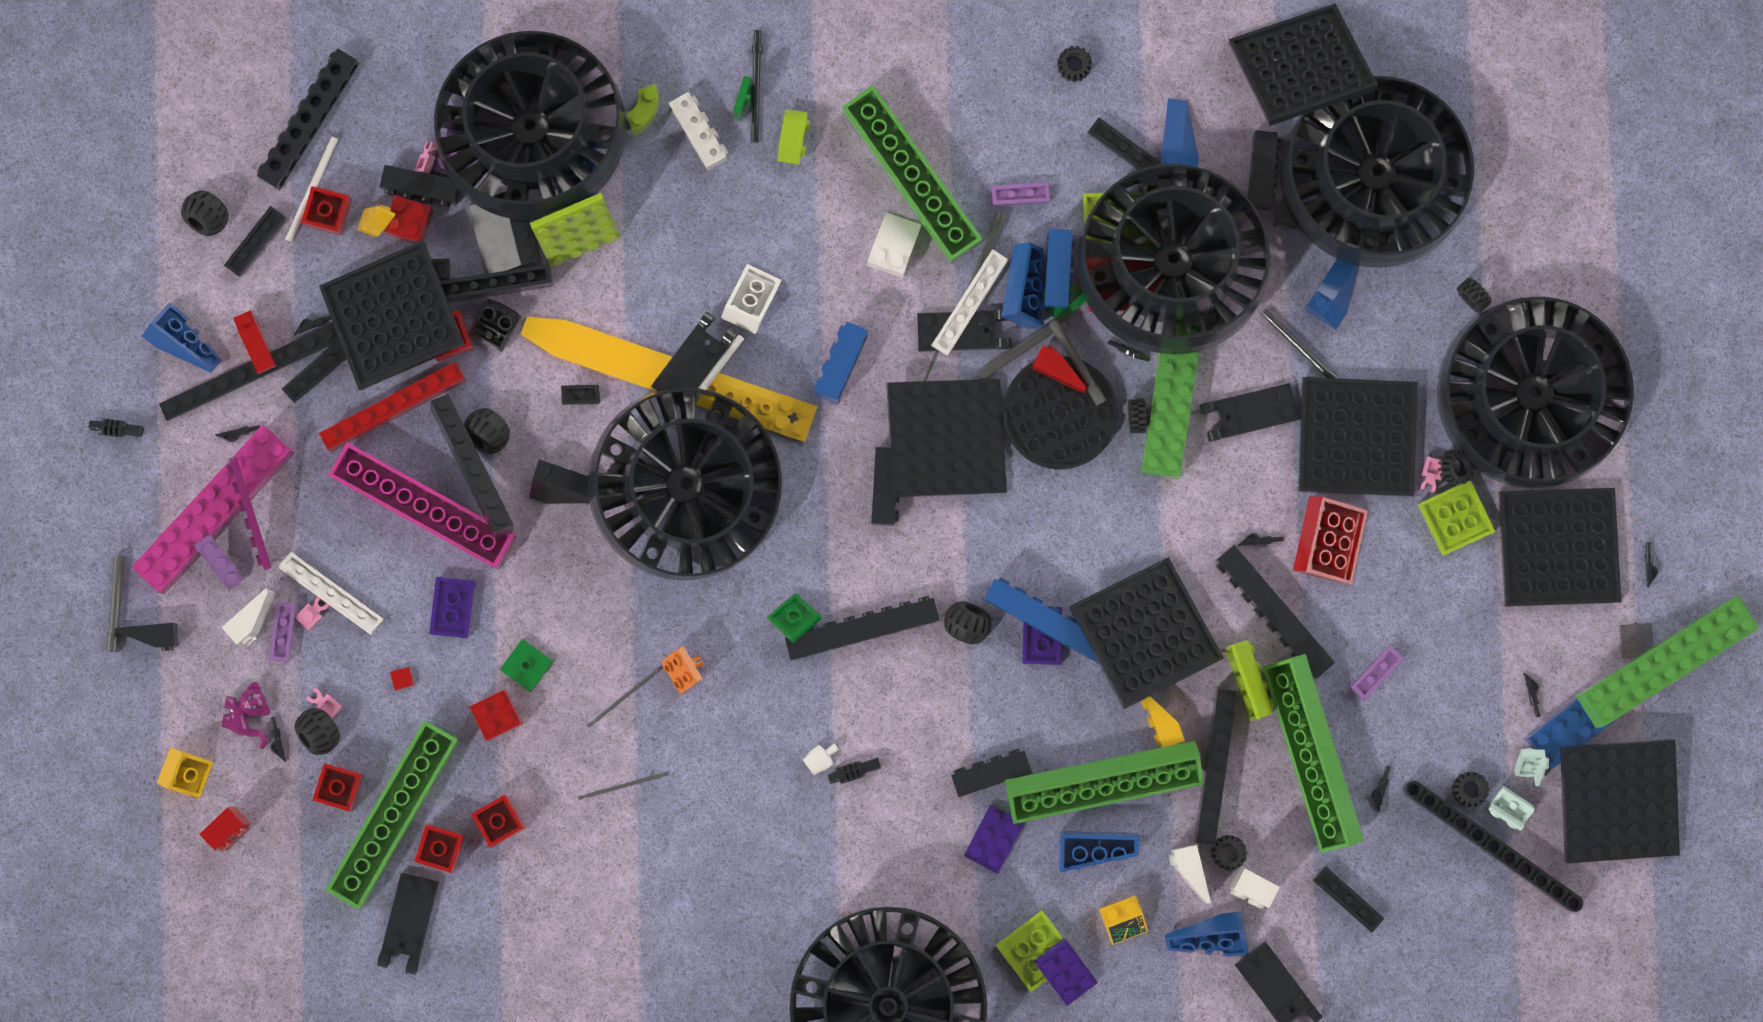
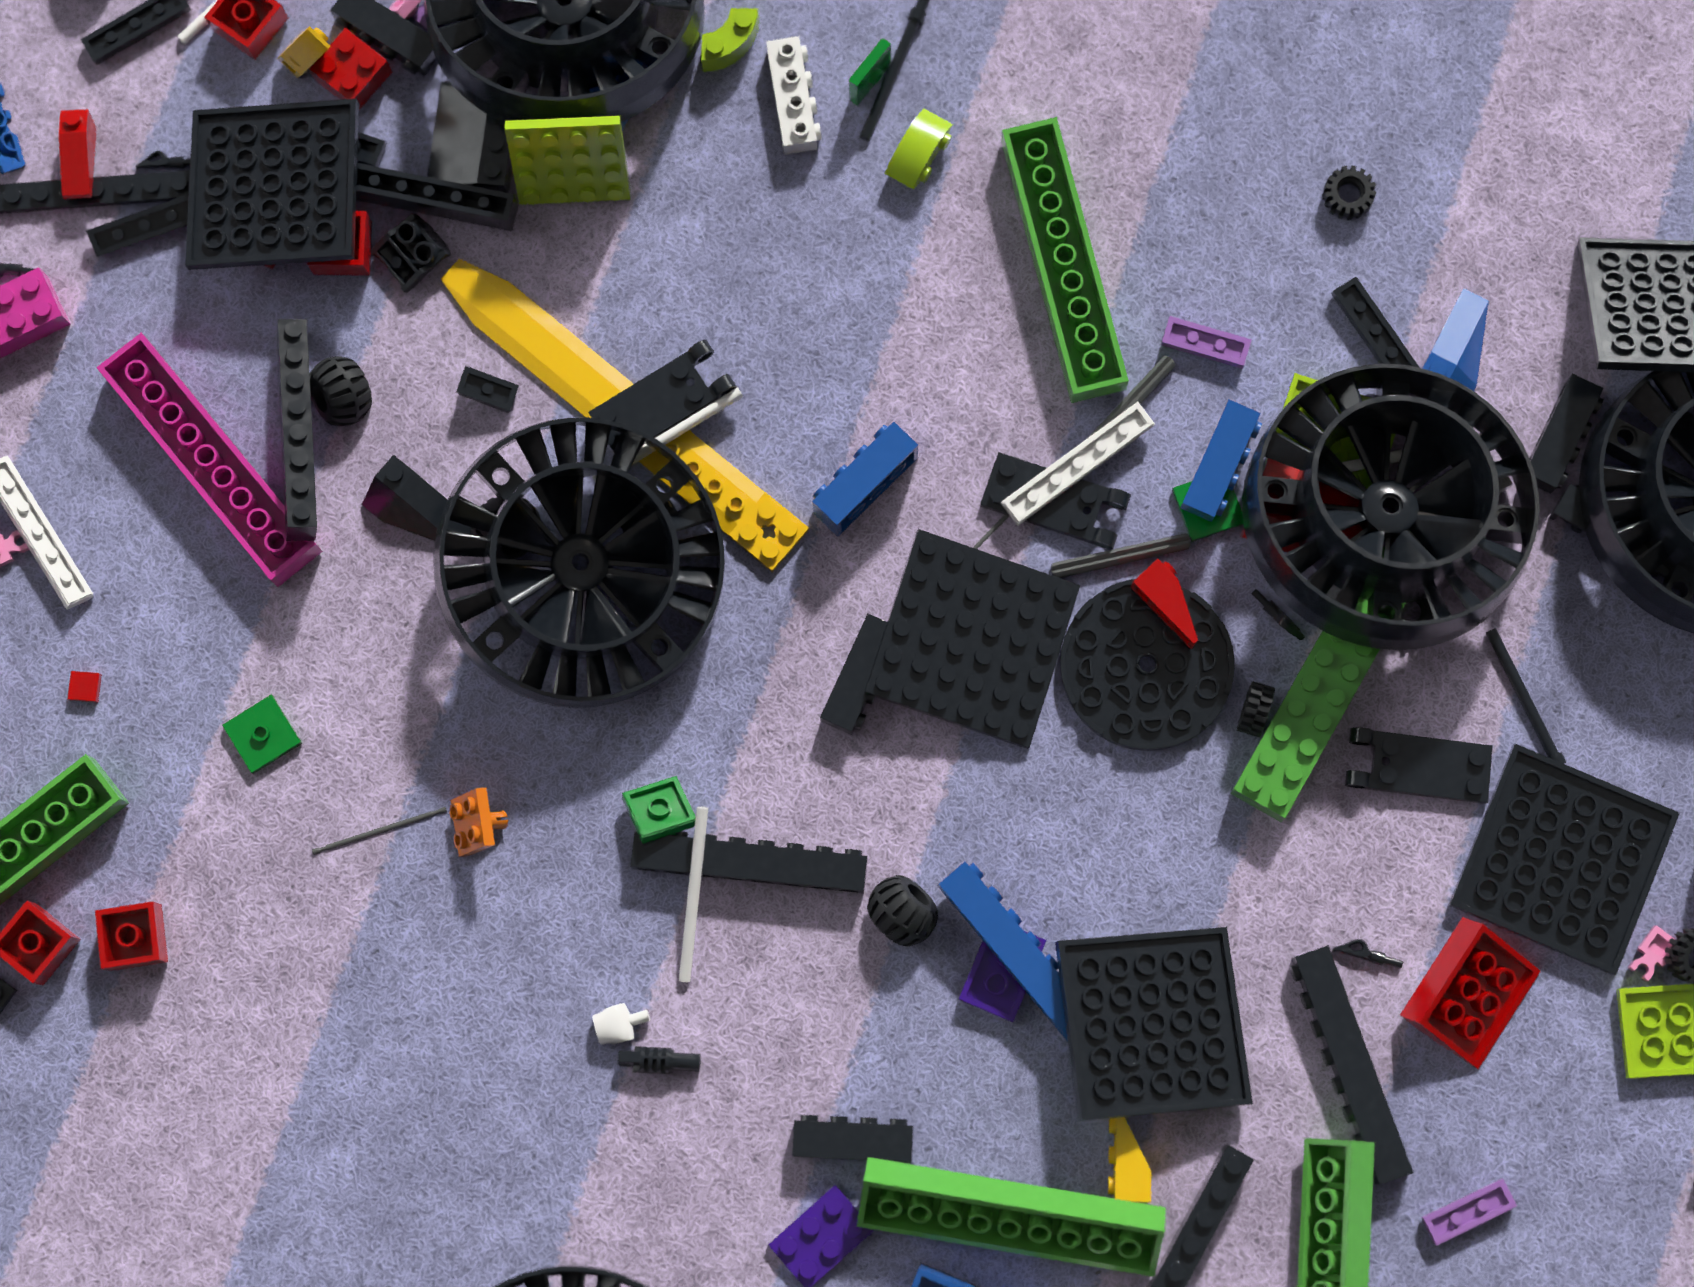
camera: 25 degrees right, 5 degrees down
(392, 407) = (225, 310): red brick -> none
(452, 607) = (193, 614): dark purple plate -> none
(496, 715) = (190, 787): red brick -> none
(623, 785) = (327, 955): dark grey piece -> none
(751, 299) = (774, 347): white slope -> none
(836, 661) = (693, 894): none -> white piece
(894, 245) = (1001, 347): white slope -> none
(1024, 287) = (1163, 469): blue wedge -> none
(1061, 335) = (1190, 556): dark grey piece -> none
(1249, 681) = (1278, 1150): lime slope -> none
(1333, 294) = (1602, 644): blue wedge -> none

